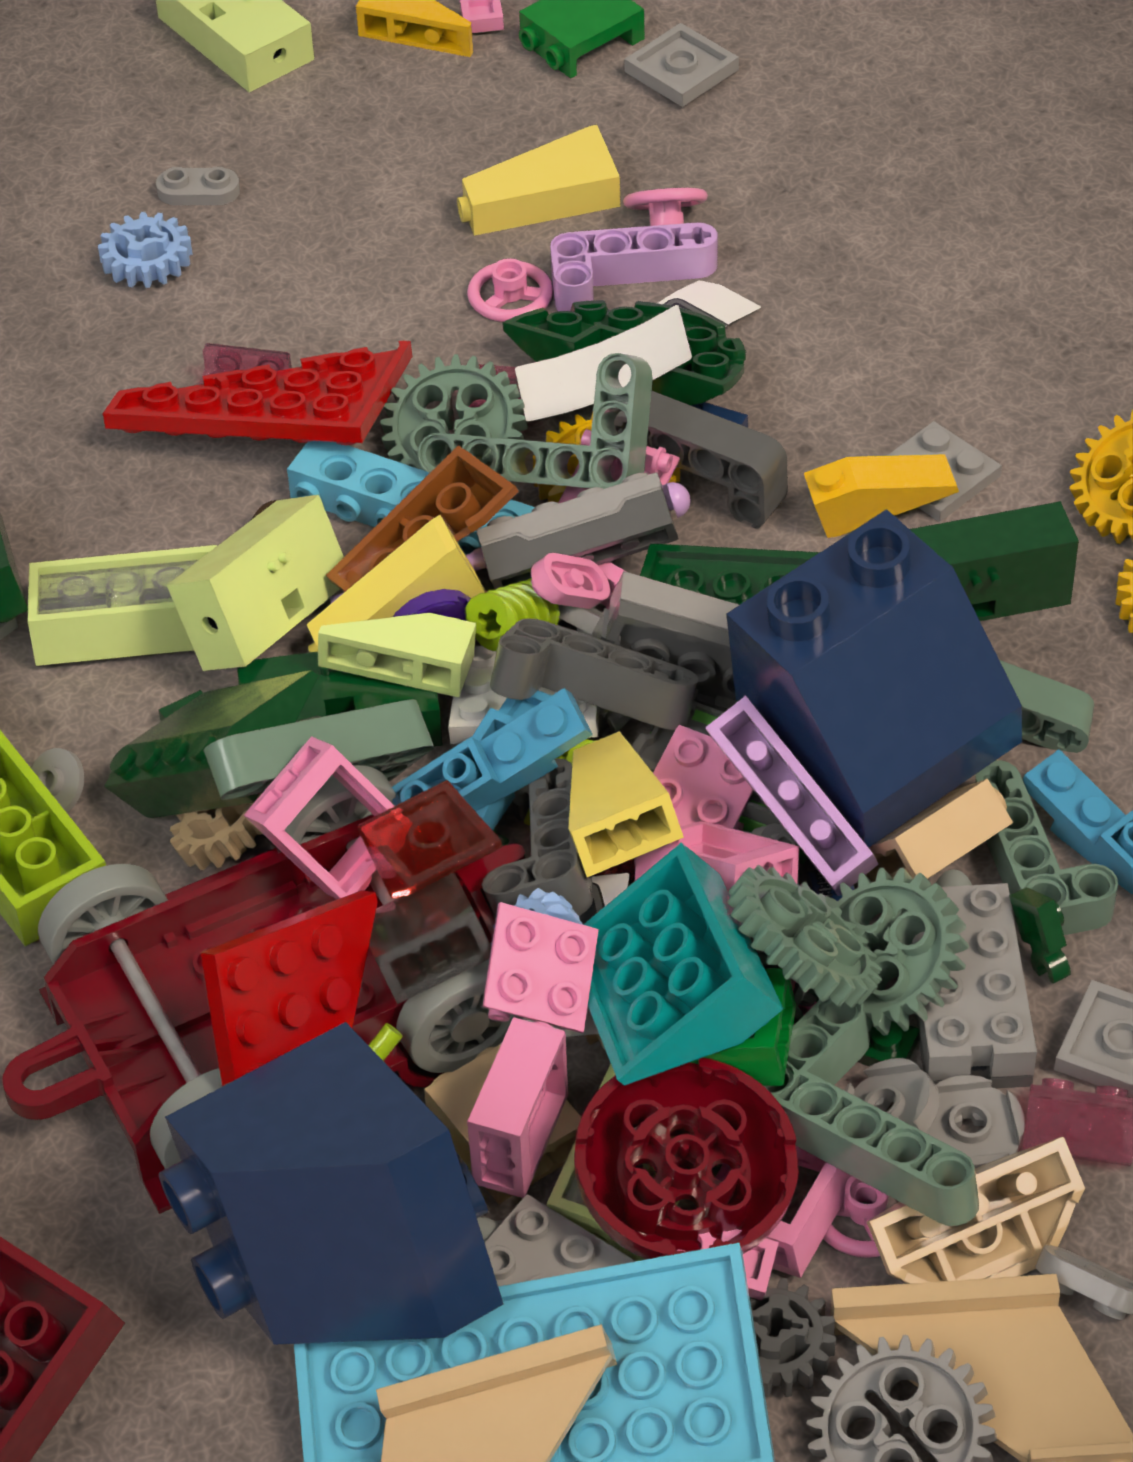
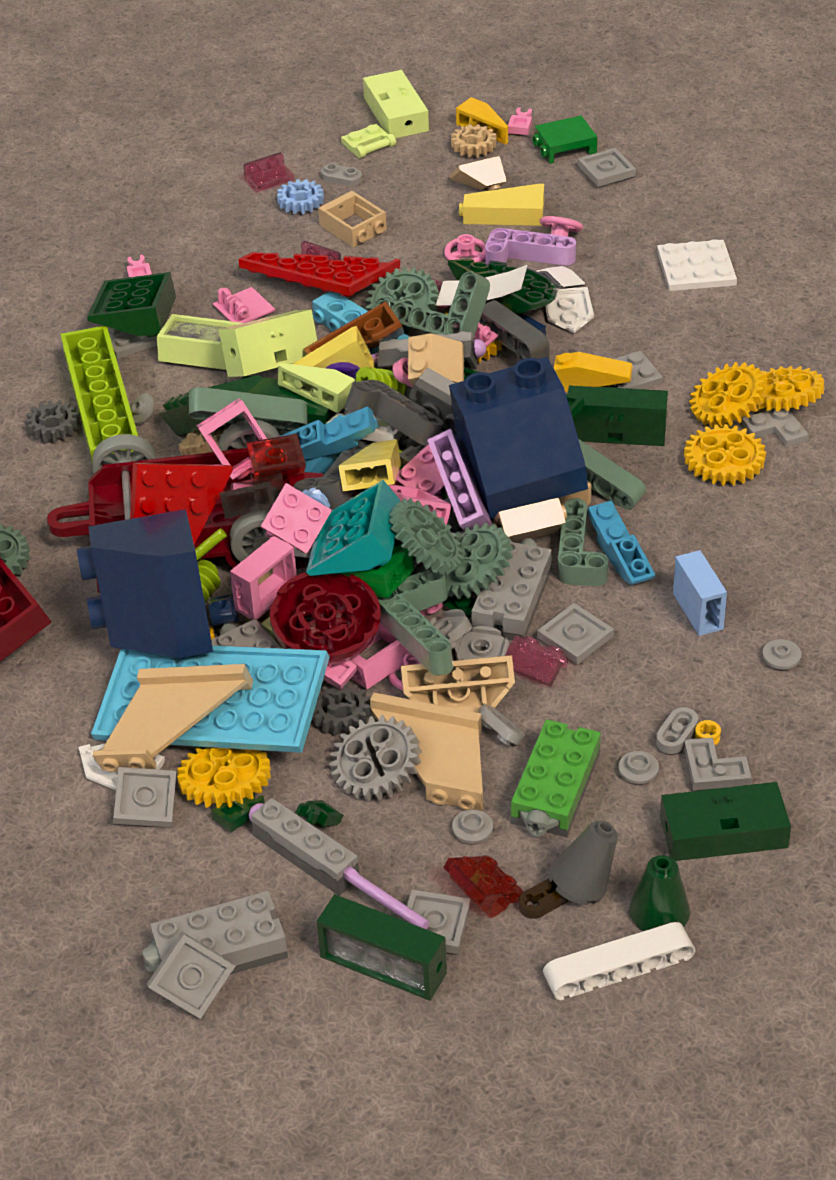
camera: 20 degrees right, 5 degrees down
(55, 215) = (267, 172): none -> clear pink bracket
(144, 506) = (242, 306): none -> bright pink hinge
(206, 97) = (368, 140): none -> yellowish green plate
(256, 242) = (351, 203): none -> tan window
(414, 63) = (473, 140): none -> tan gear
(469, 131) = (481, 174): none -> slope
(611, 538) = (436, 353): none -> tan slope
(773, 366) = (570, 309): none -> white tile
(939, 224) = (696, 265): none -> white plate
(1041, 927) = (558, 570): dark green plate -> none

